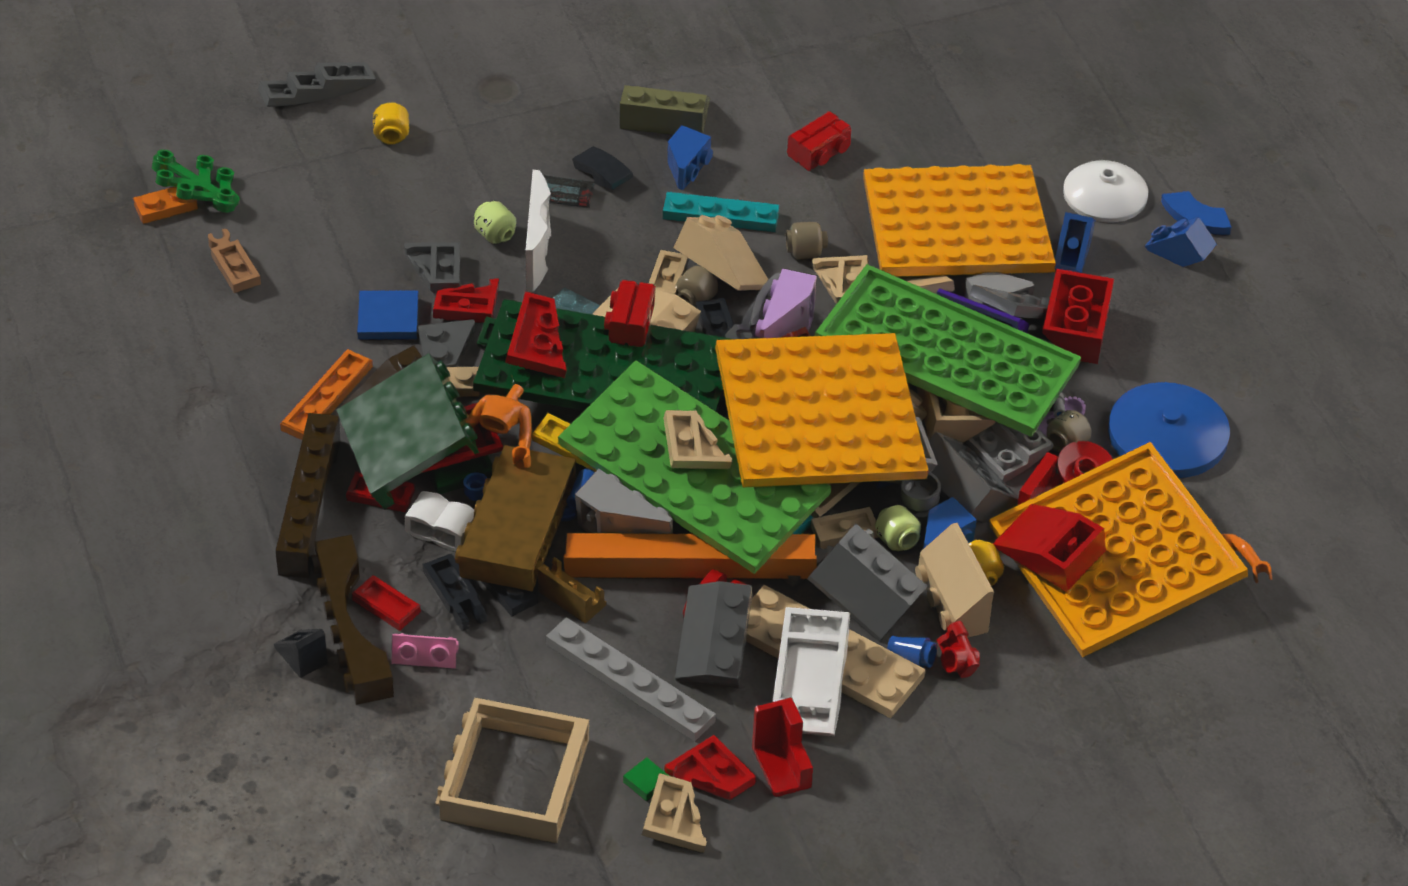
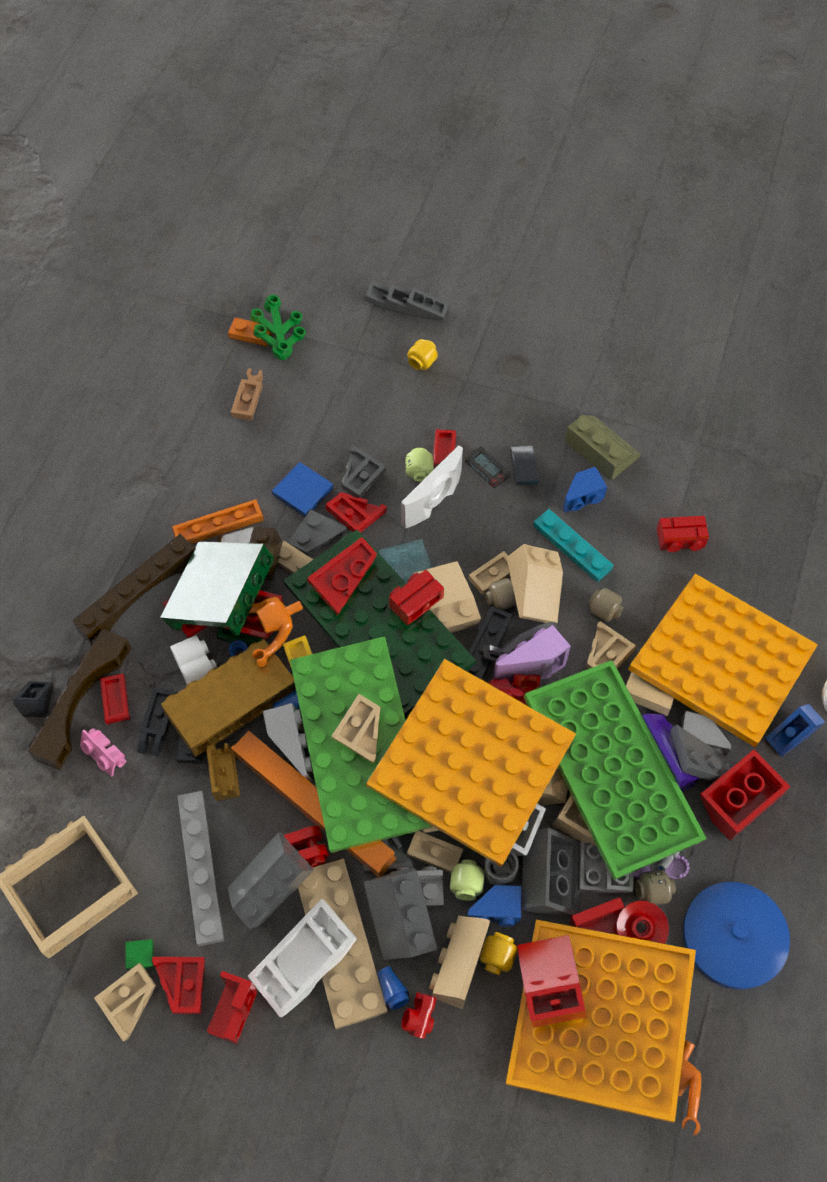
camera: 40 degrees right, 15 degrees up
(498, 190) = (443, 445): none -> red tile

